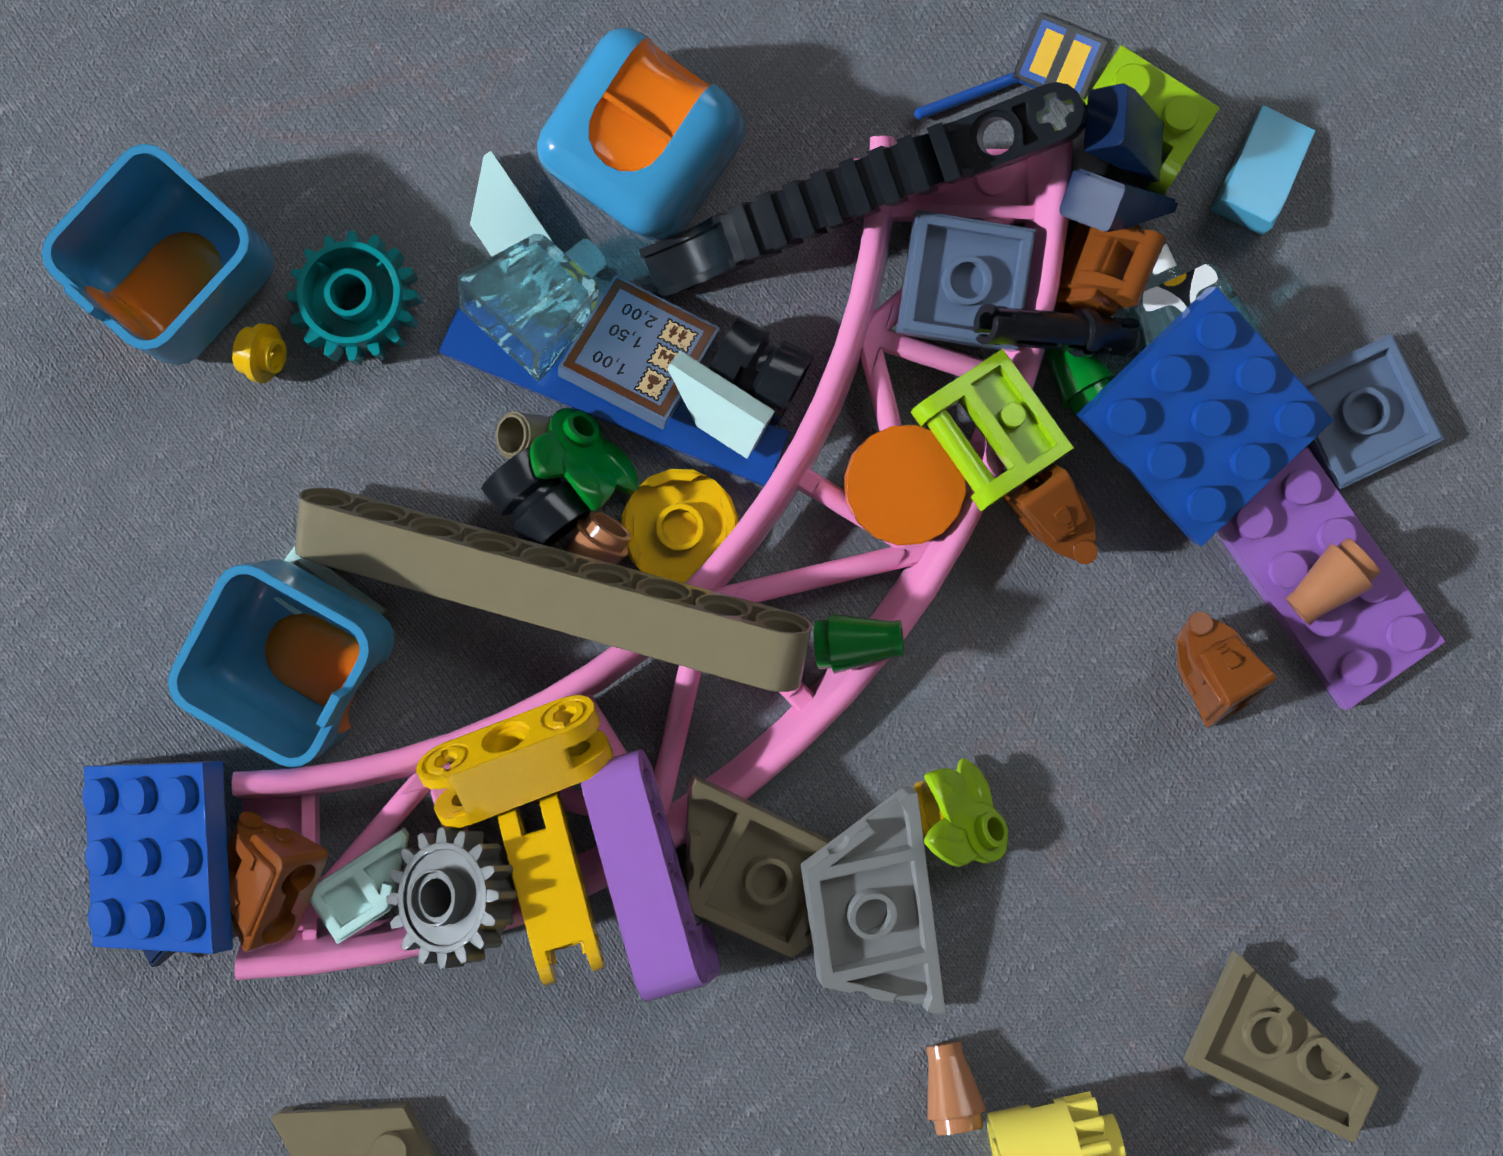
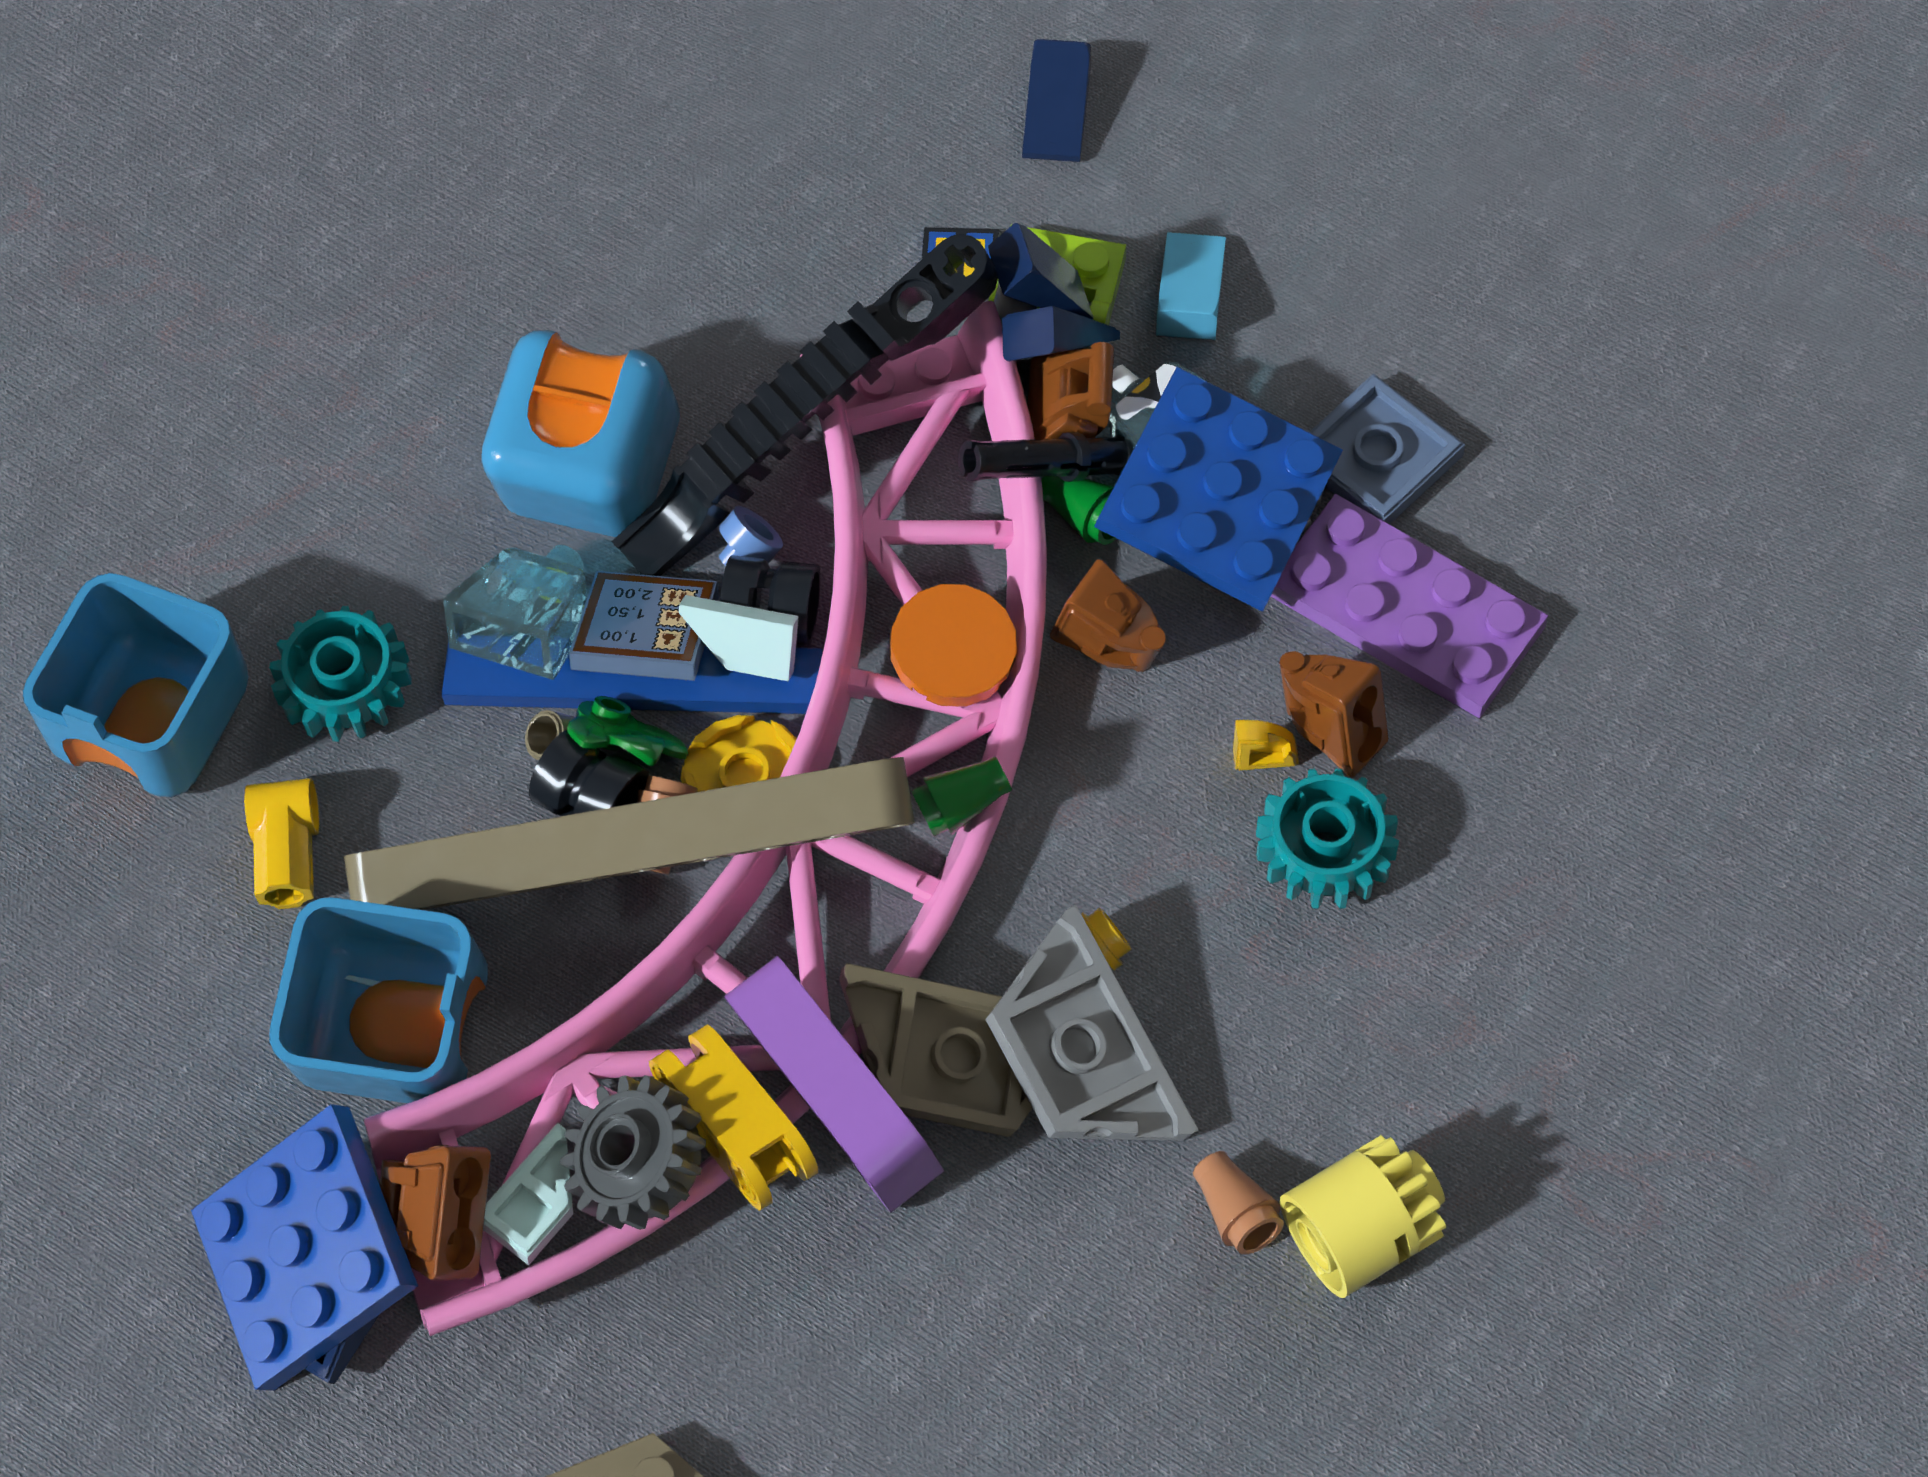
camera: 15 degrees left, 25 degrees down
(259, 352) = (258, 754): yellow plate -> none
(260, 430) = (281, 825): none -> yellow piece
(500, 211) = (457, 549): light aqua tile -> none
(515, 761) = (654, 1006): yellow piece -> none
(762, 295) = (748, 536): none -> medium blue tile
(958, 268) = (920, 448): sand blue tile -> none
(970, 823) = (1141, 929): lime plate -> none
(1008, 419) = (1025, 545): lime plate -> none
(1140, 675) = (1263, 745): none -> yellow tile
(1194, 793) = (1321, 867): none -> teal gear
(1274, 1053) = (1553, 1051): dark tan wing -> none
(1334, 579) = (1407, 583): nougat cone -> none

